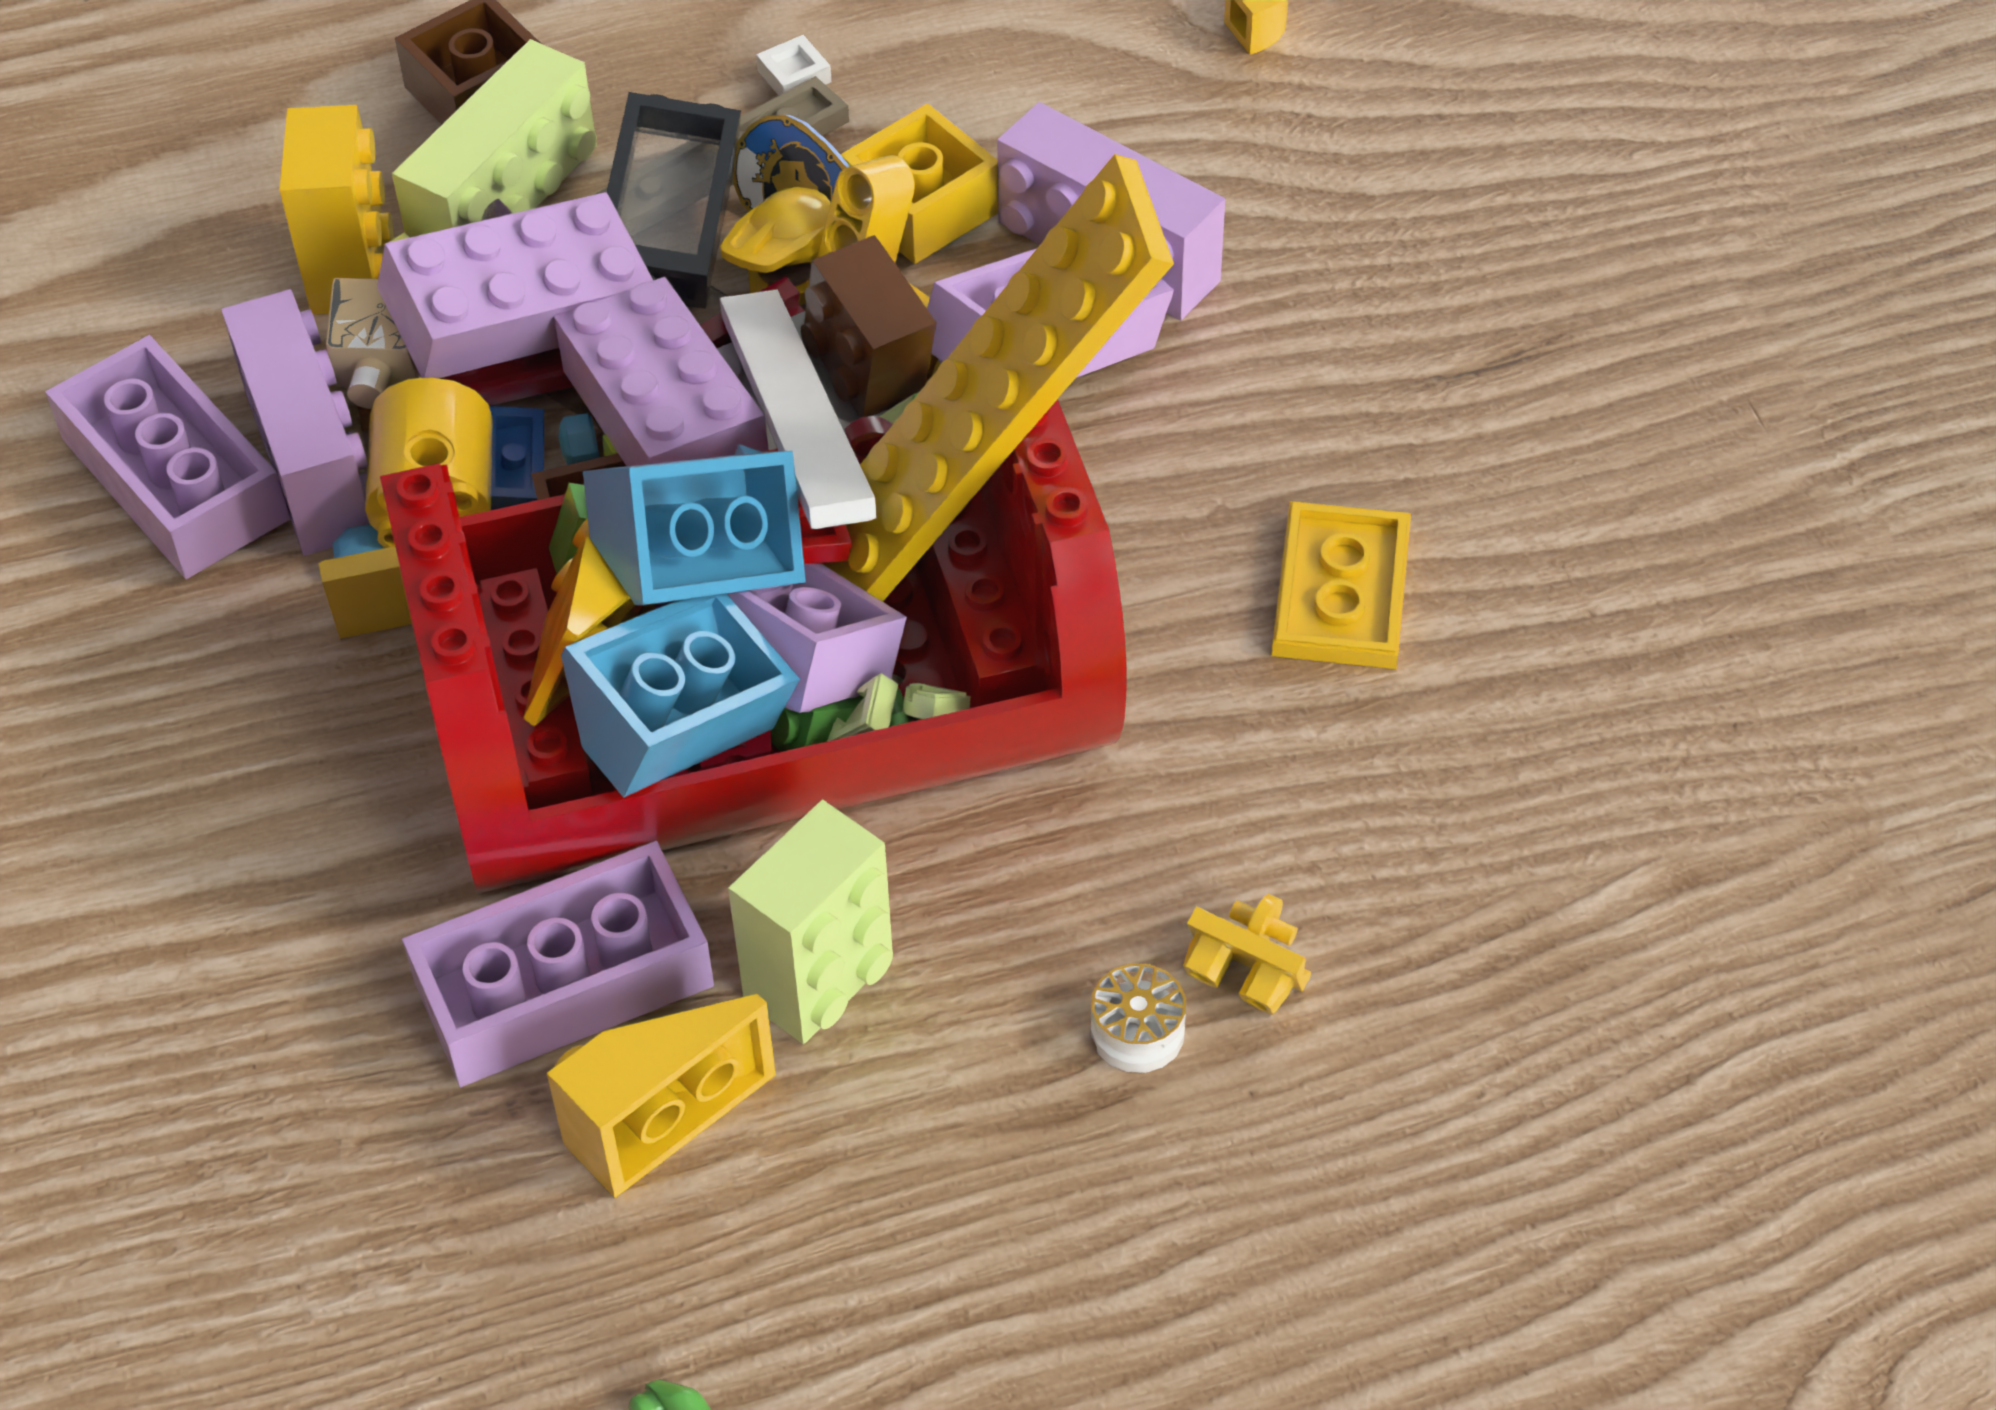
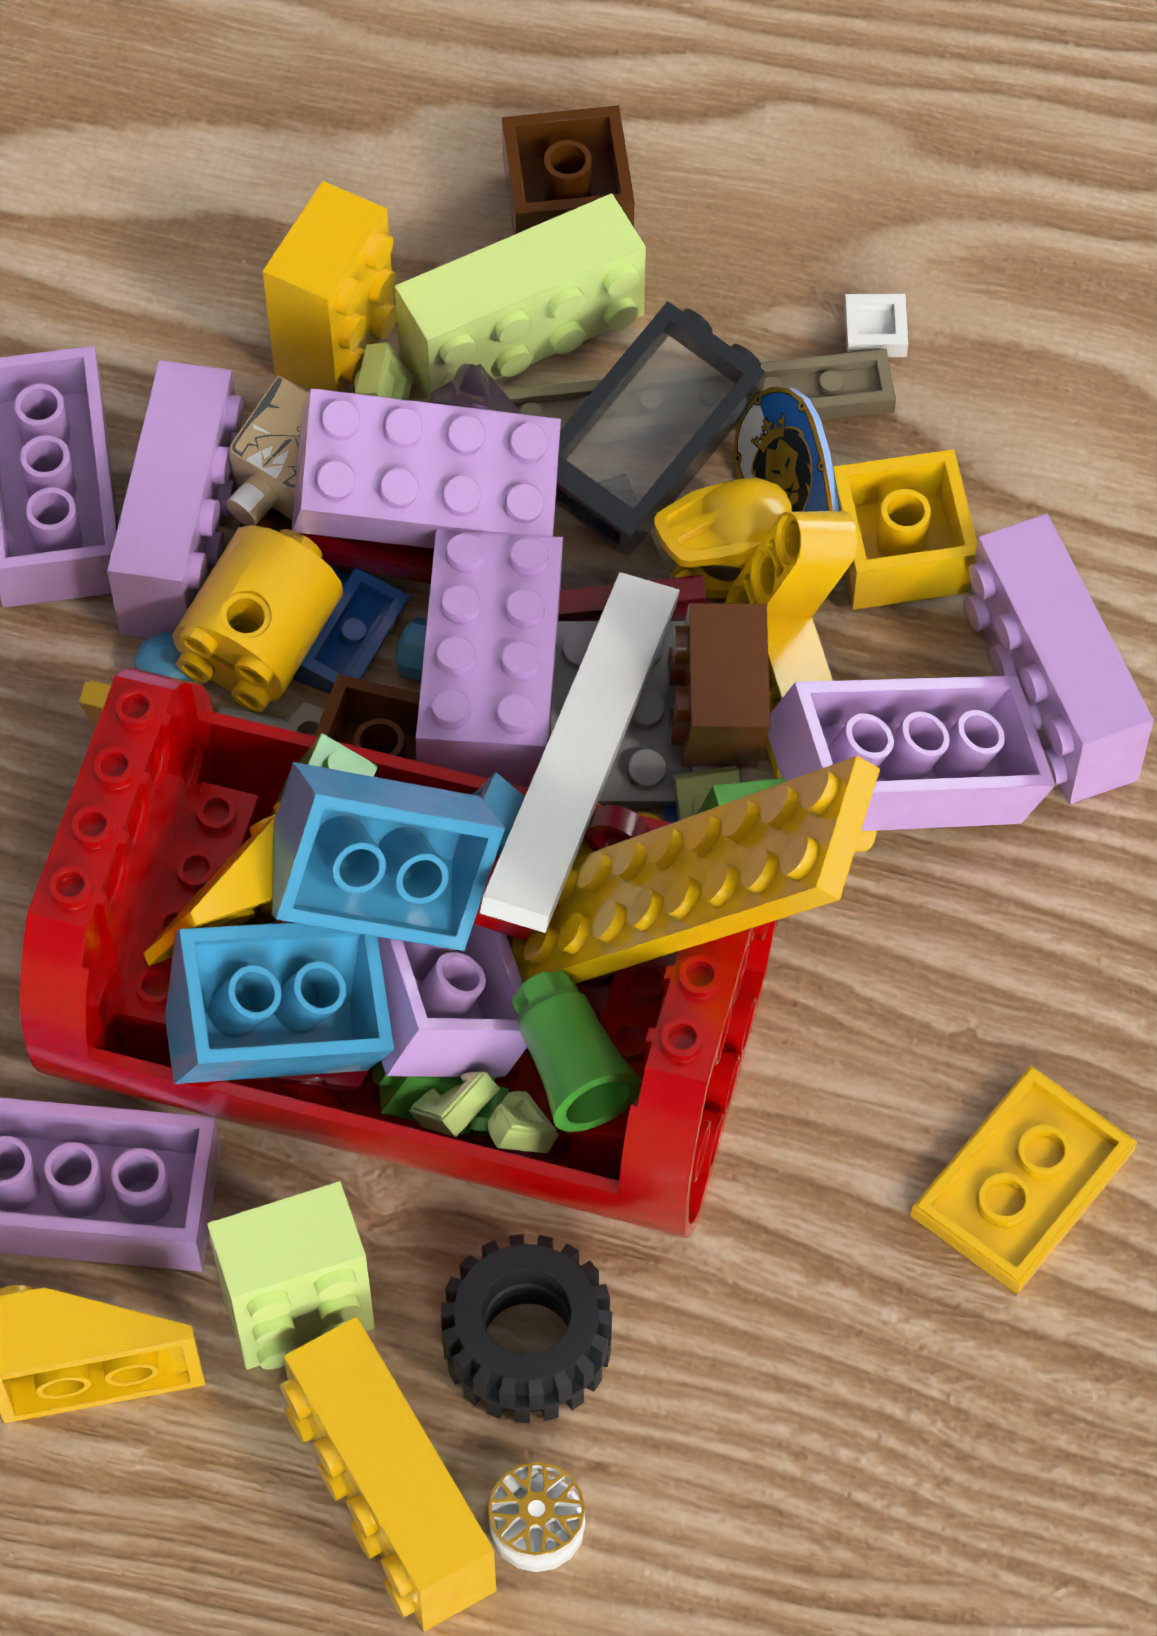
camera: 30 degrees right, 10 degrees up
(954, 608) = (573, 1054): none -> bright green plant
(999, 1038) = (389, 1473): none -> yellow brick
(1030, 921) = (518, 1277): none -> black tyre
(1272, 966) = (655, 1486): yellow hips -> none

